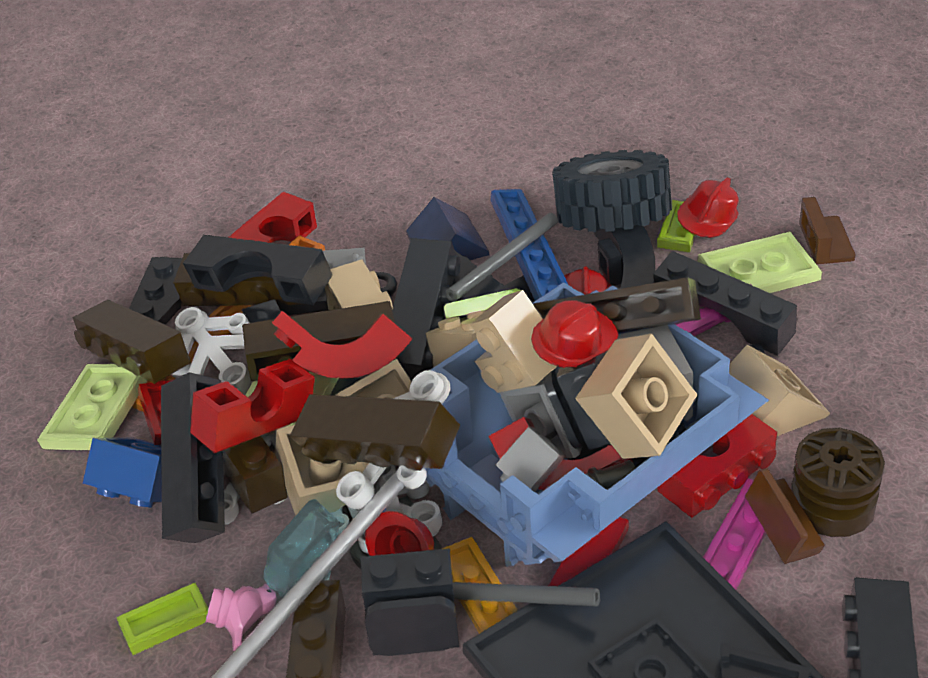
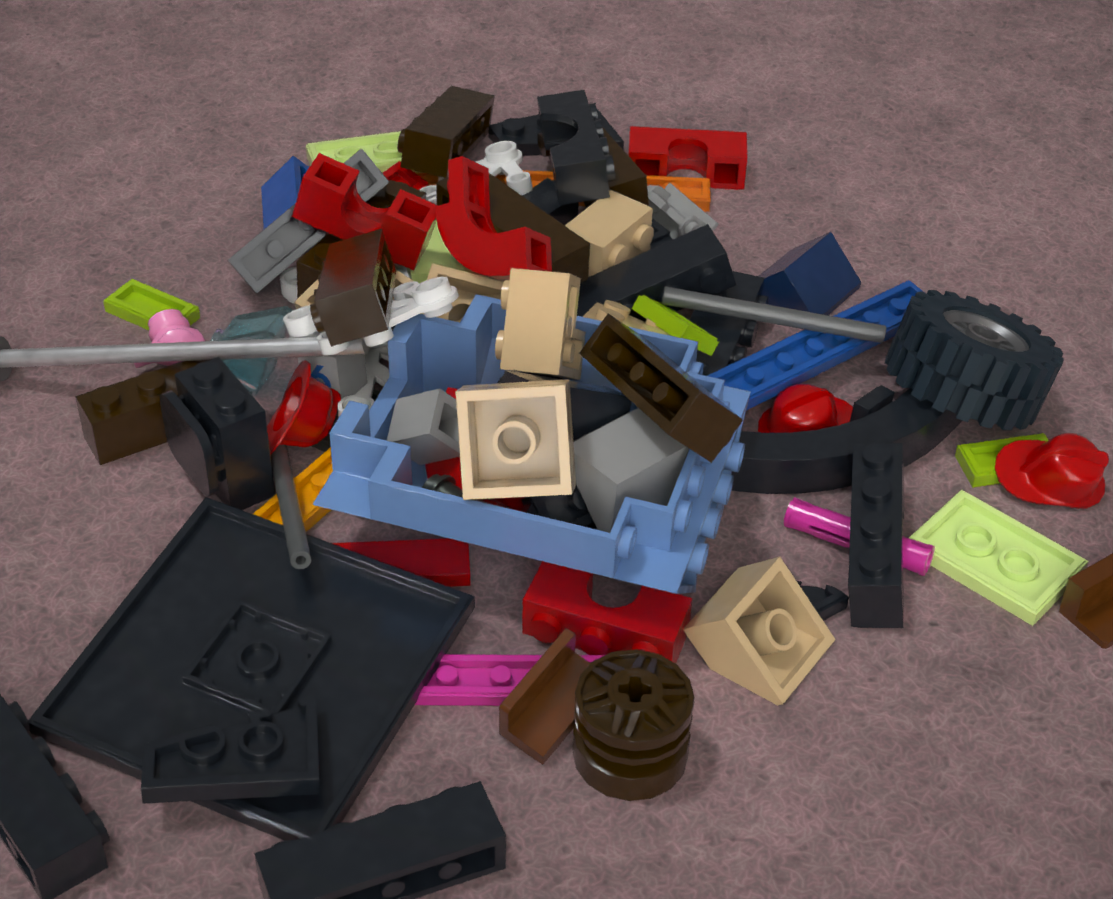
camera: 55 degrees right, 0 degrees up
(573, 334) = (563, 346): red piece -> none

